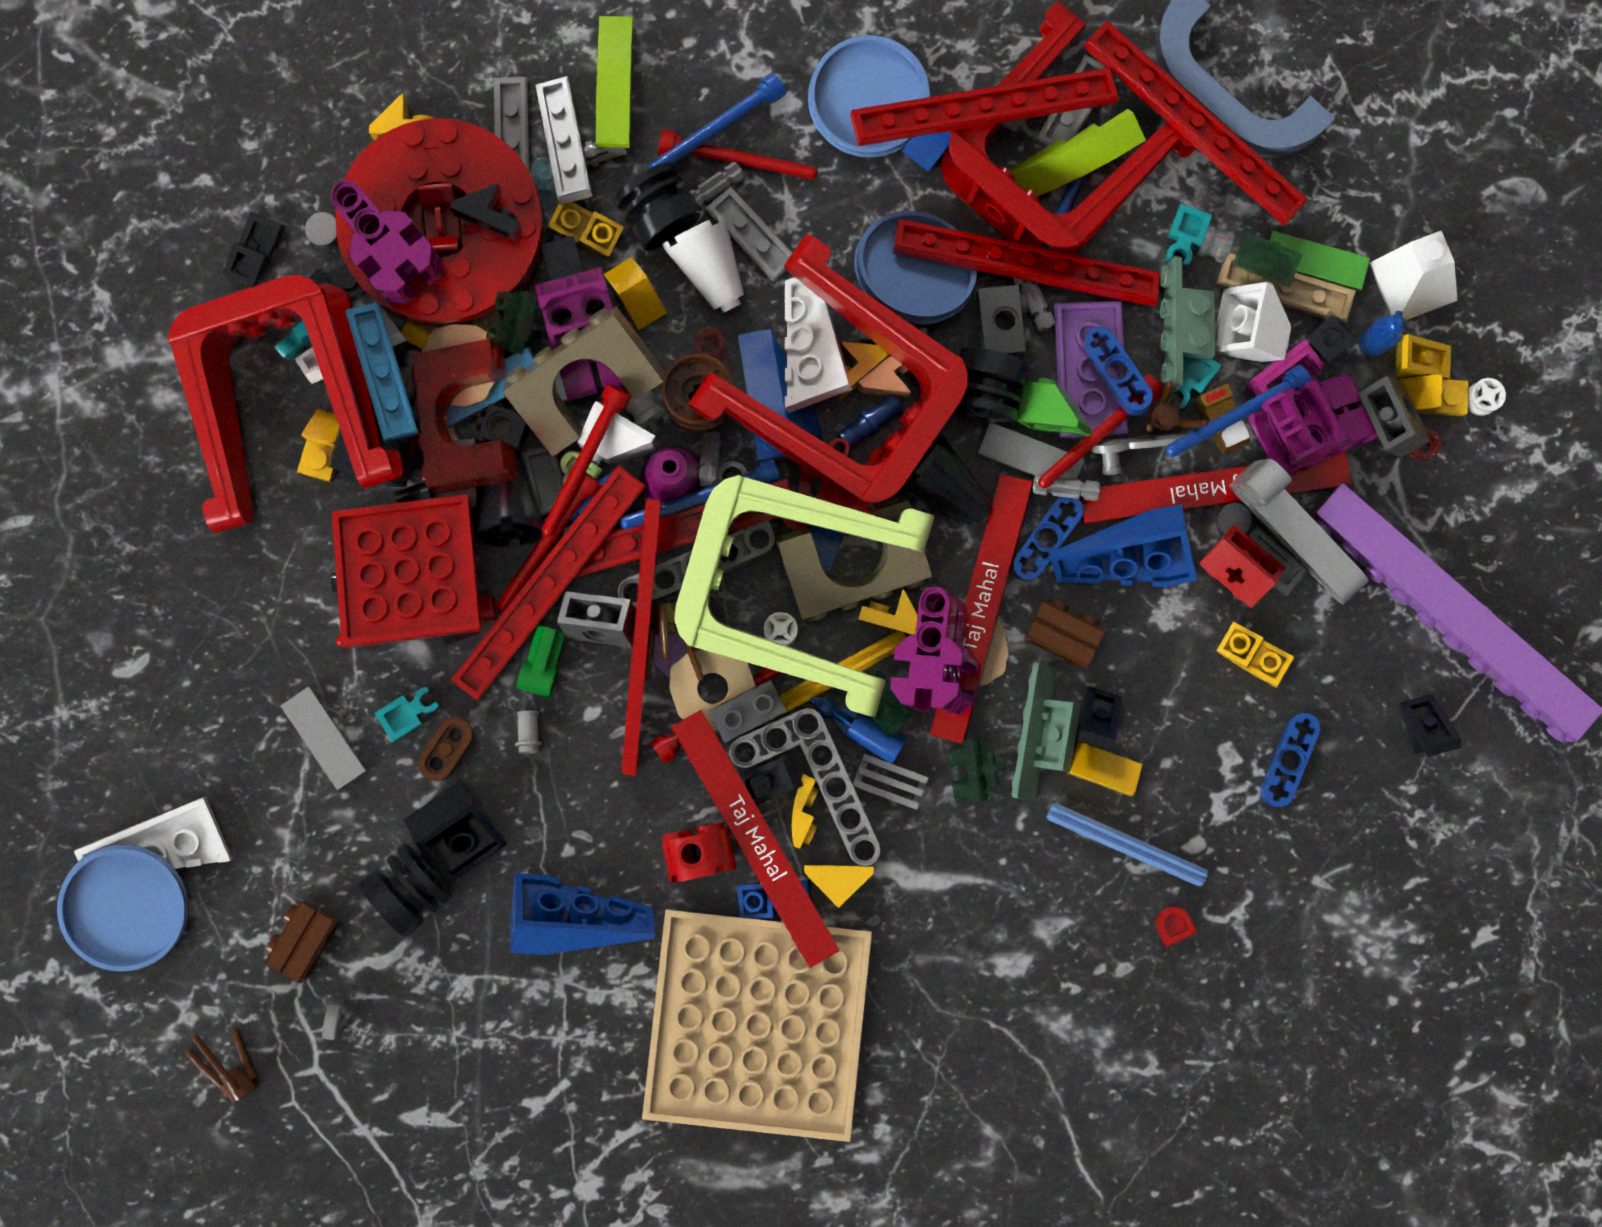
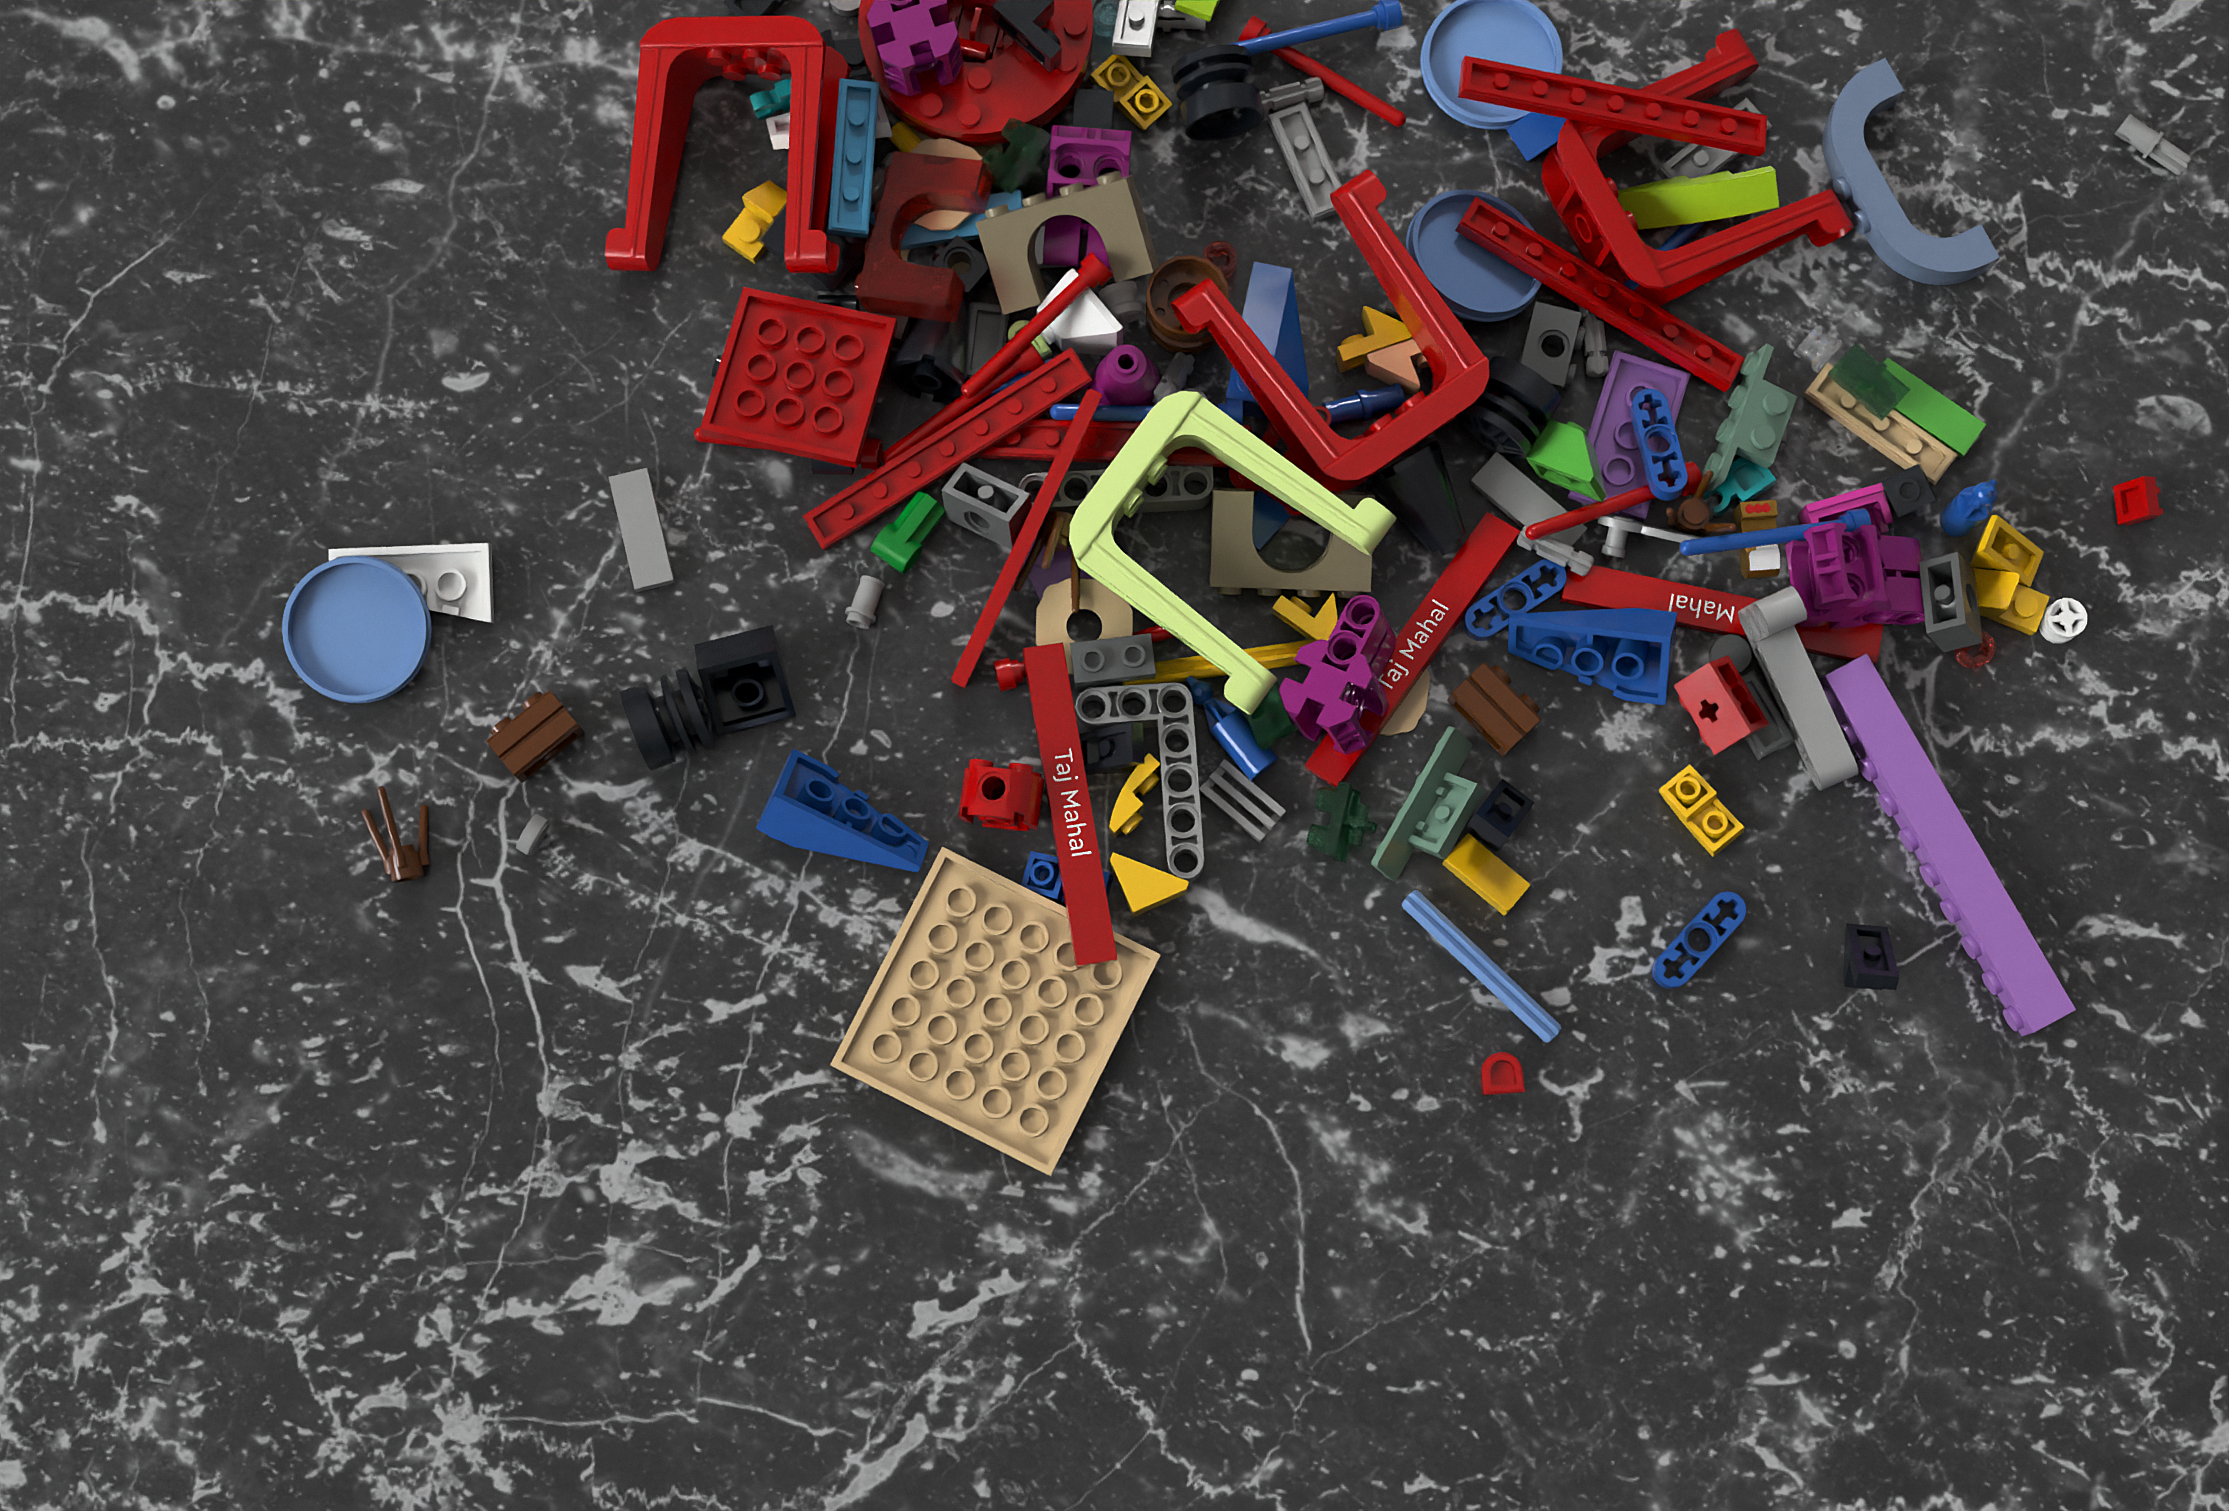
camera: 25 degrees right, 5 degrees down
(402, 716) = (734, 535): teal plate -> none
(445, 748) = (766, 585): reddish brown plate -> none
(635, 293) = (1159, 180): yellow slope -> none
(709, 263) = (1251, 170): white cone -> none
(783, 626) = (1181, 584): white wheel -> none
(812, 348) = (1329, 301): white wing -> none
(1187, 230) = (1790, 324): teal plate -> none
(1195, 123) = (1841, 209): red tile -> none
(1252, 324) = (1827, 447): white slope -> none
(1417, 276) = (2032, 463): white slope -> none
(1510, 277) = (2137, 500): none -> red tile

